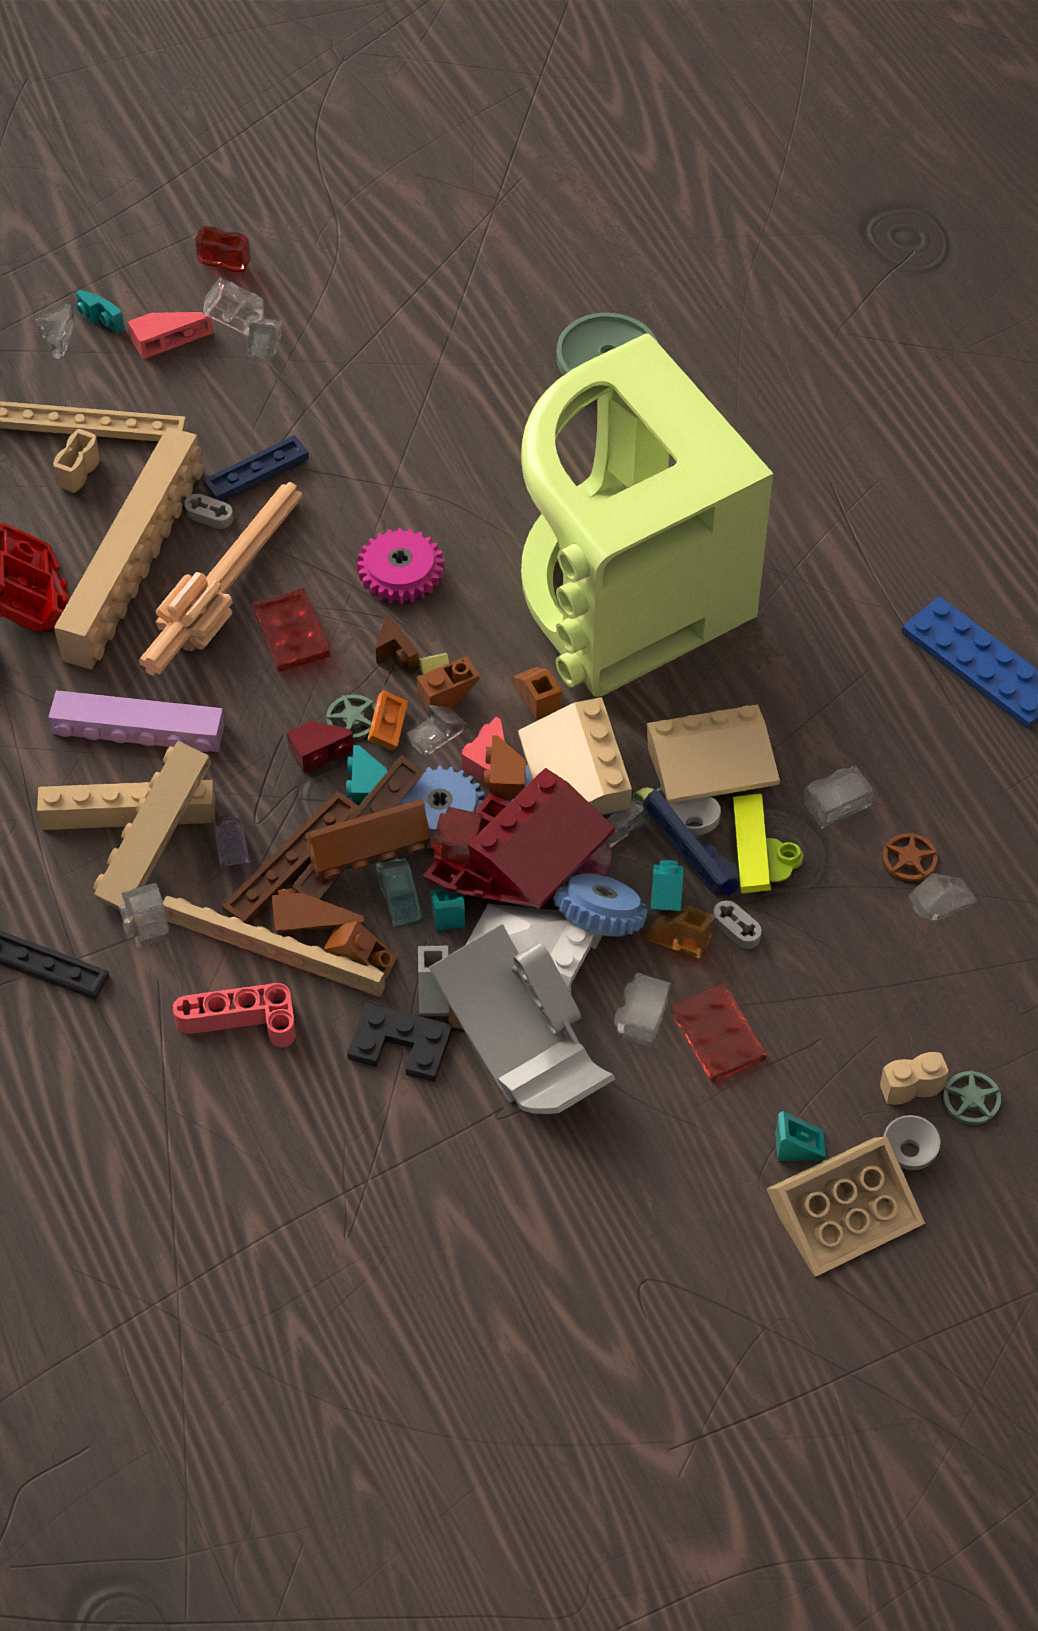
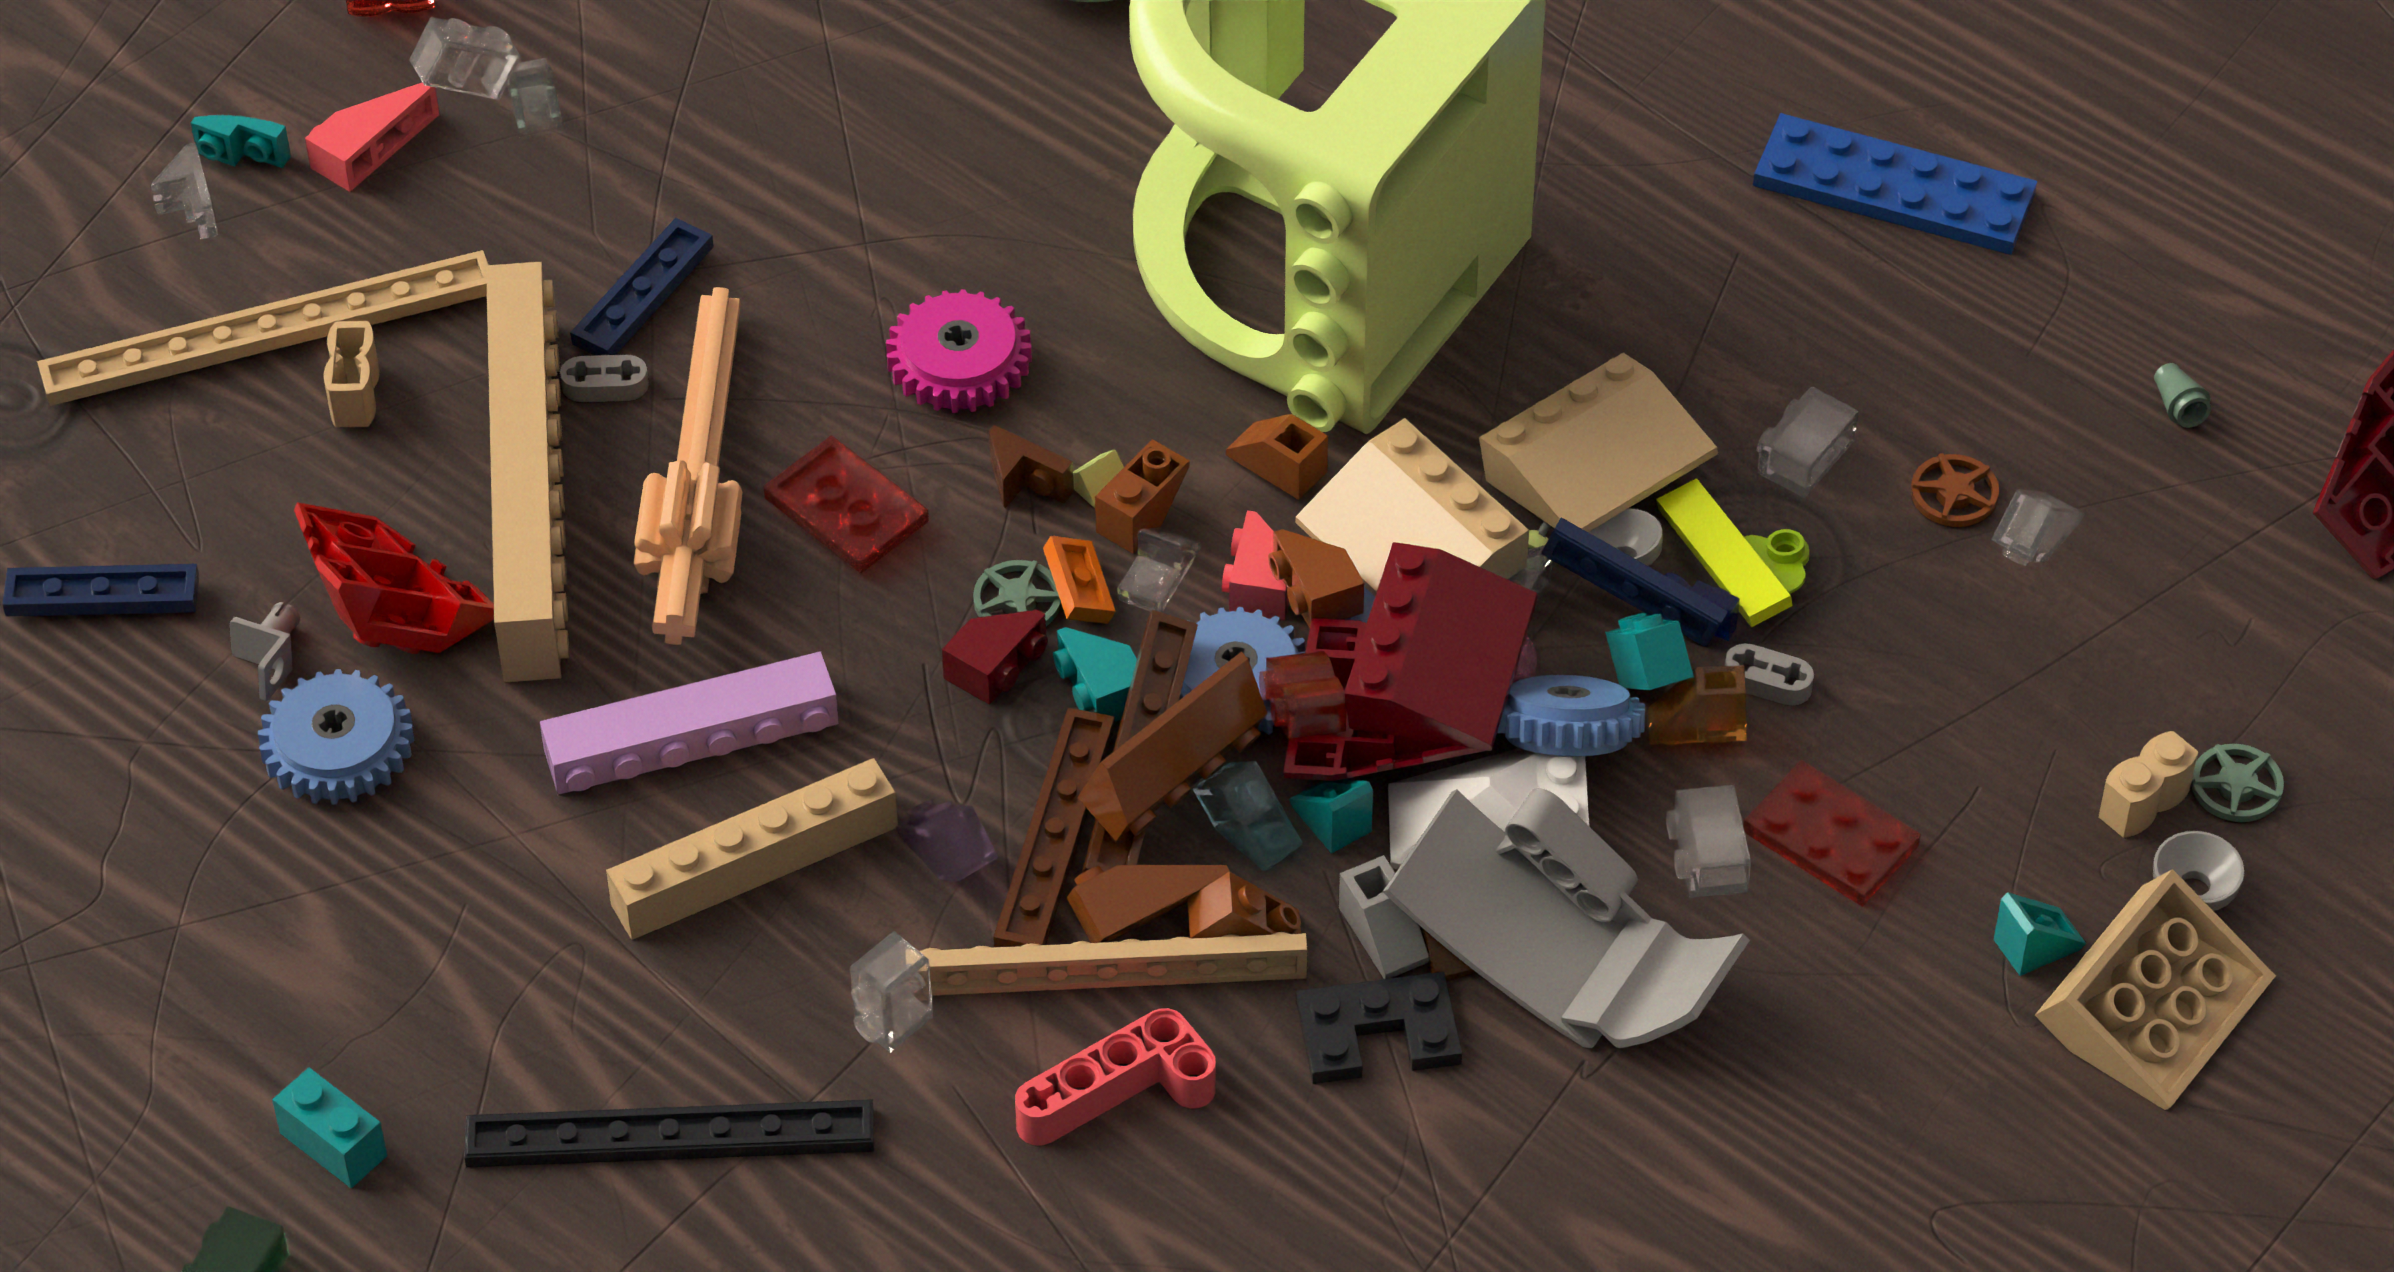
camera: 25 degrees left, 5 degrees down
(153, 825) = (829, 859): tan brick -> none

